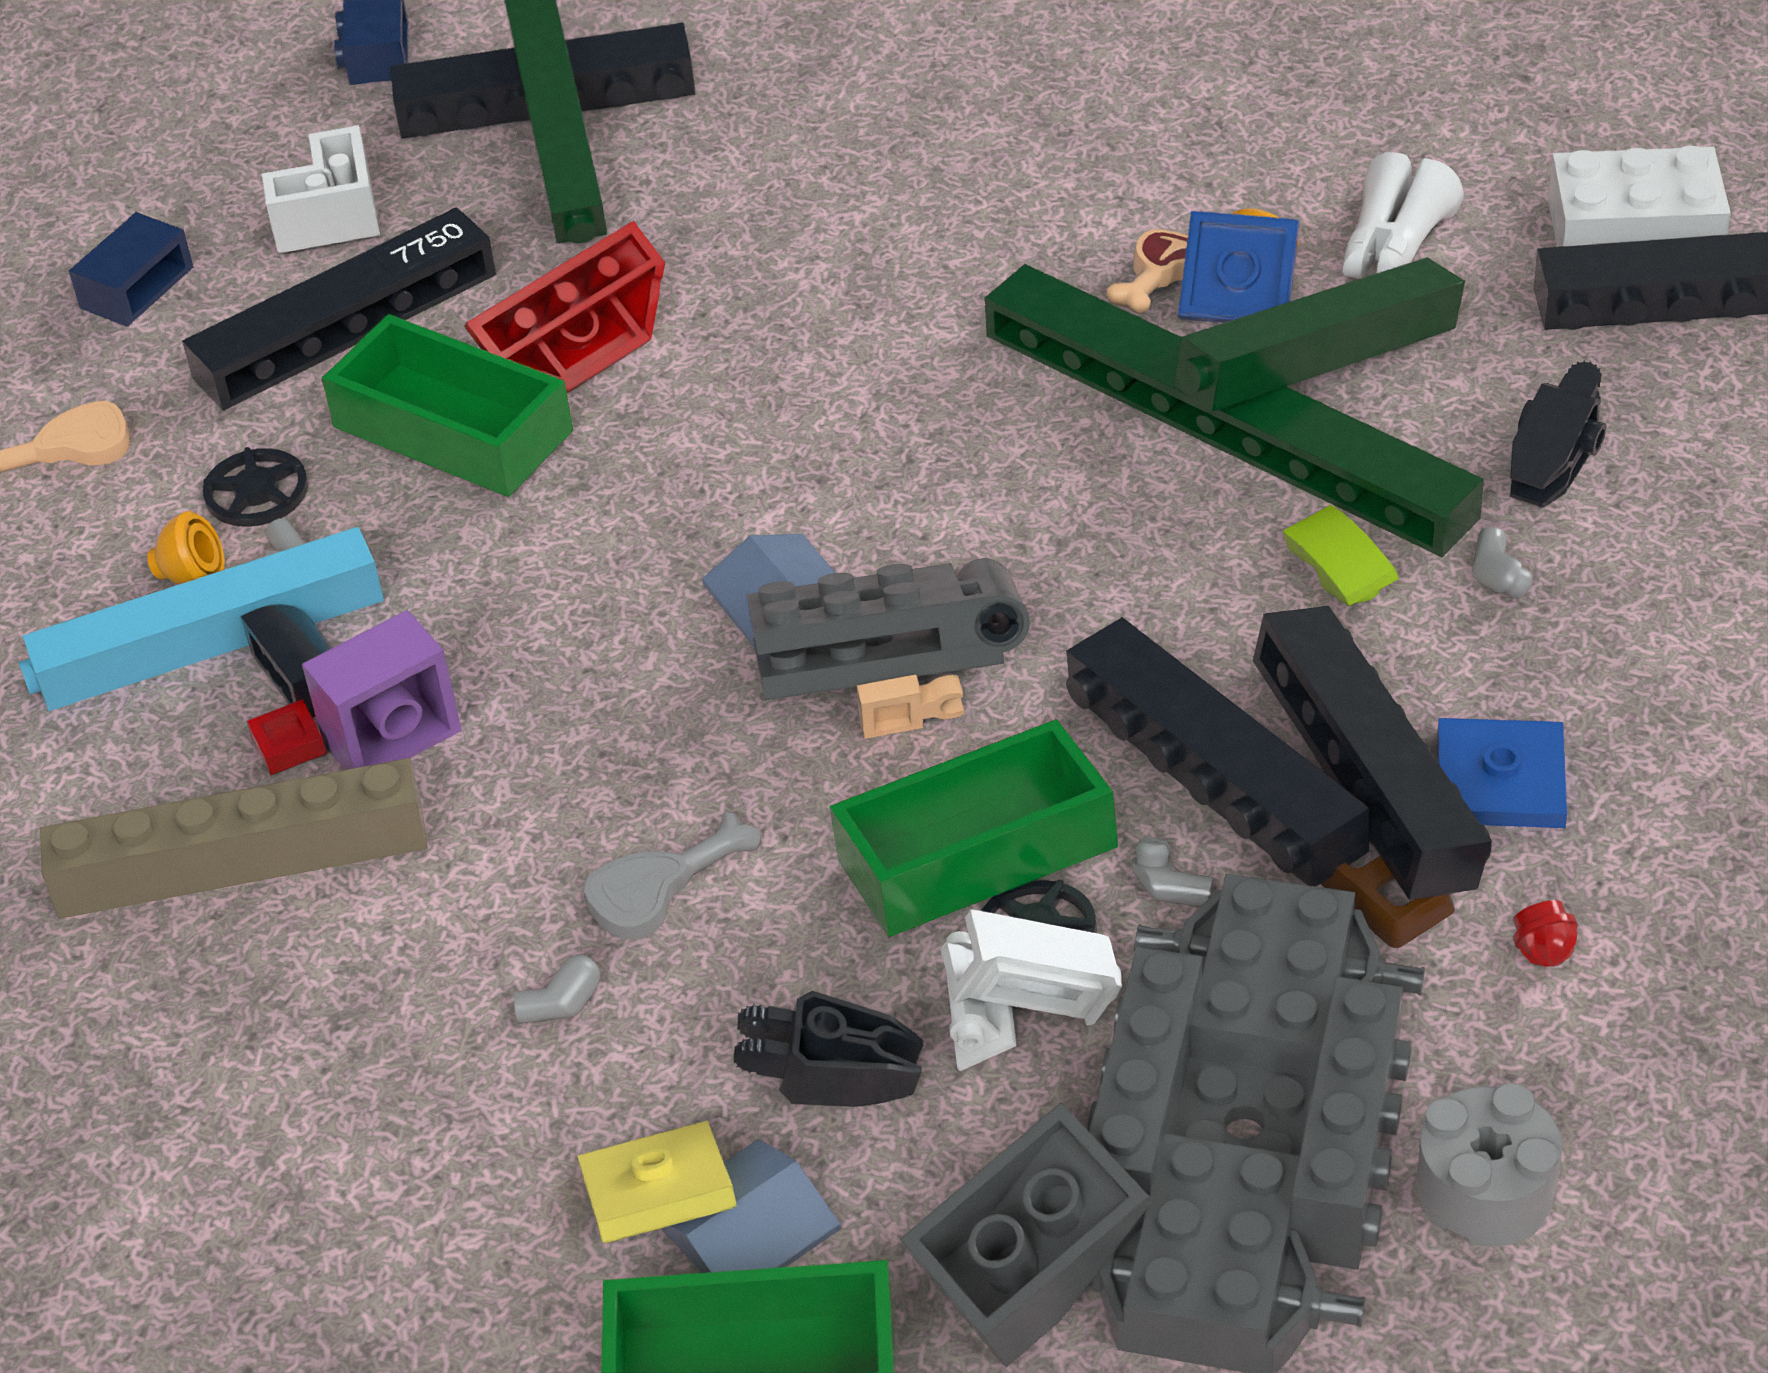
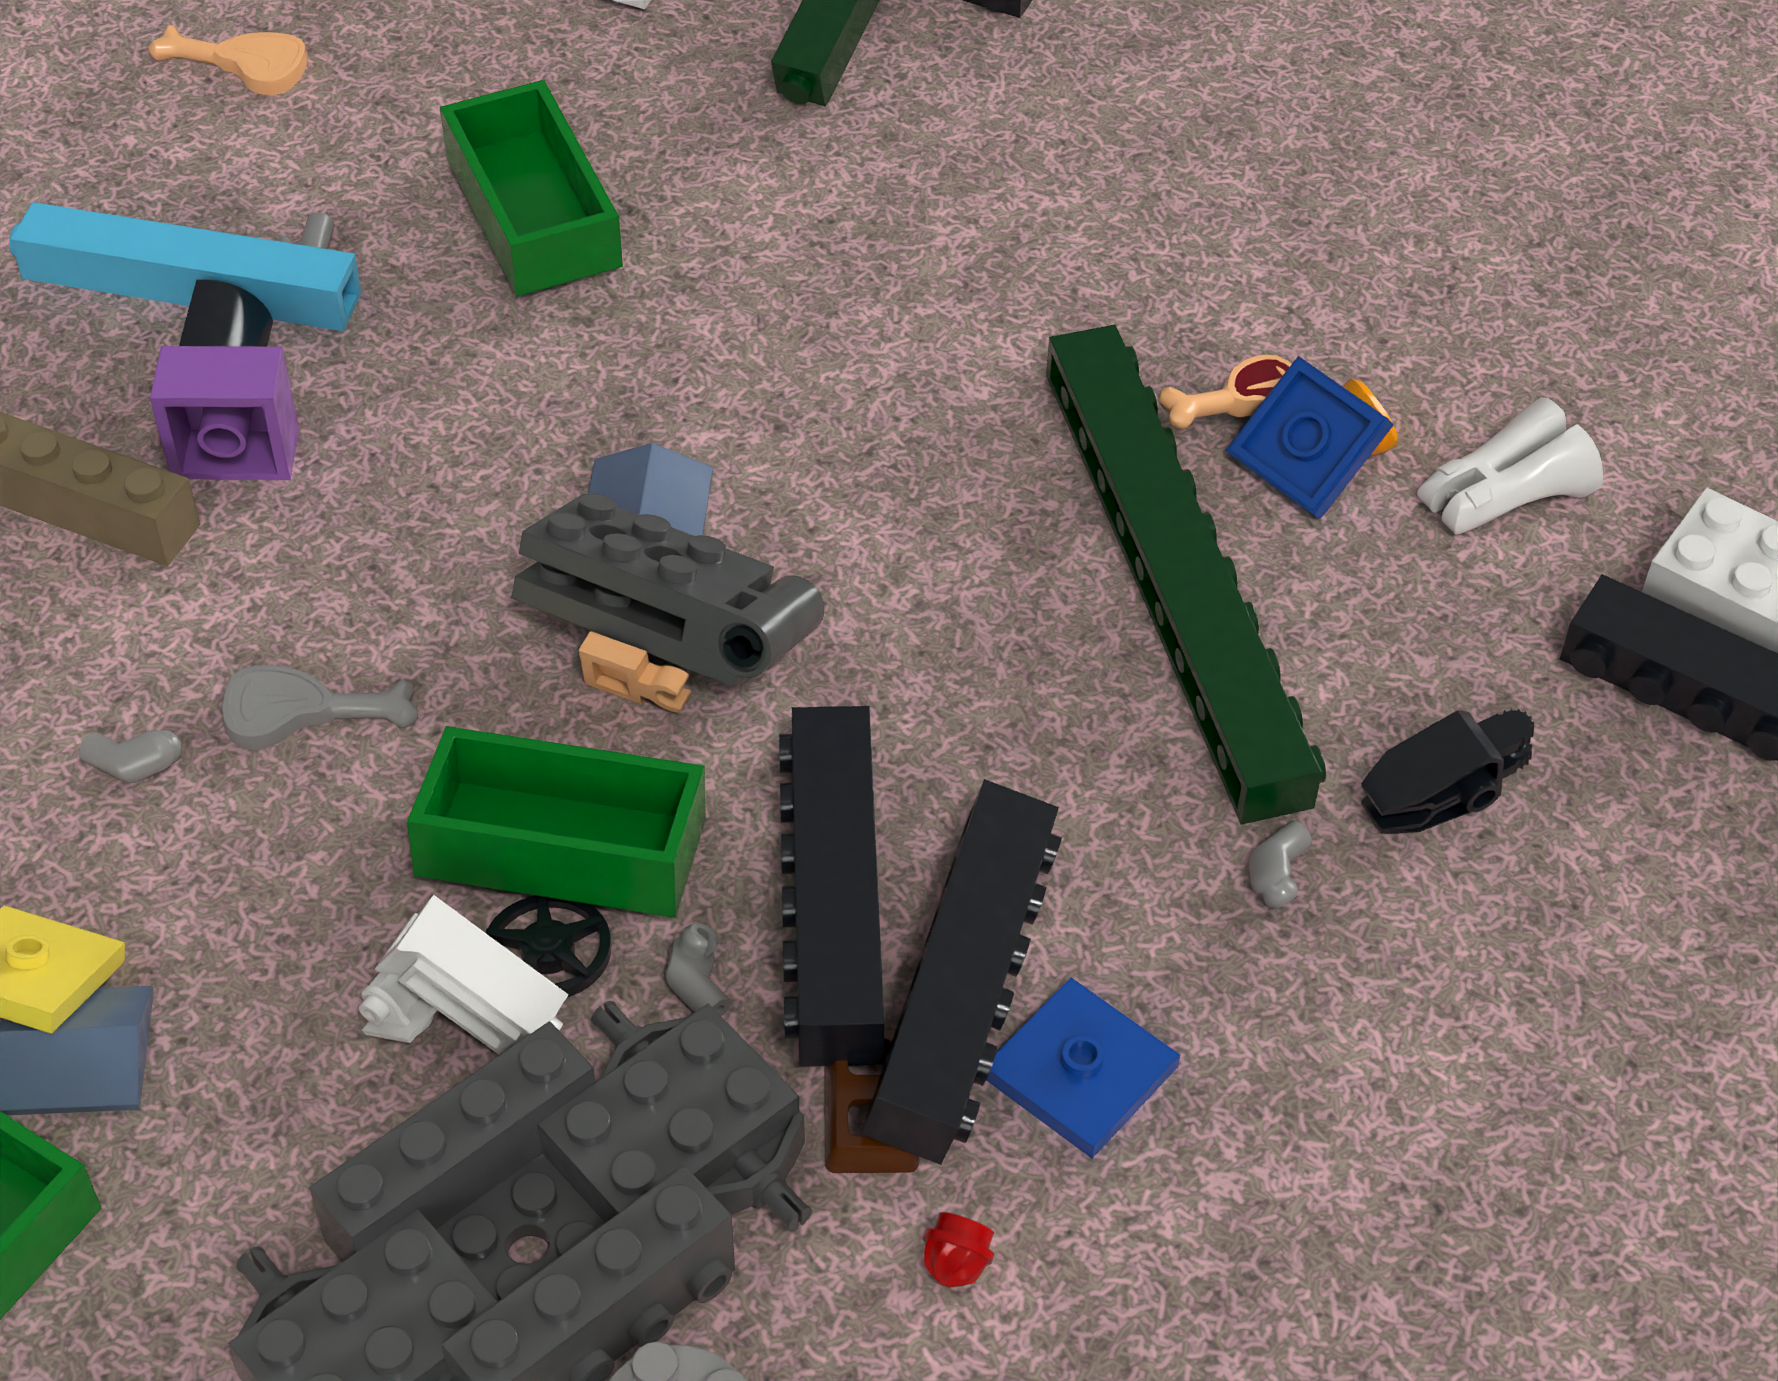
camera: 30 degrees right, 5 degrees up
(186, 550) = (232, 201): light orange brick -> none
(255, 486) = (342, 176): black wheel -> none
(286, 737) = (133, 407): red plate -> none
(338, 308) = (569, 52): black brick -> none
(580, 312) = (704, 163): red wedge -> none
(830, 1051) = (258, 947): black hinge -> none
(1028, 1232) = (210, 1221): dark grey slope -> none
(1318, 333) = (1305, 540): dark green brick -> none
(1342, 555) = (1135, 766): lime slope -> none

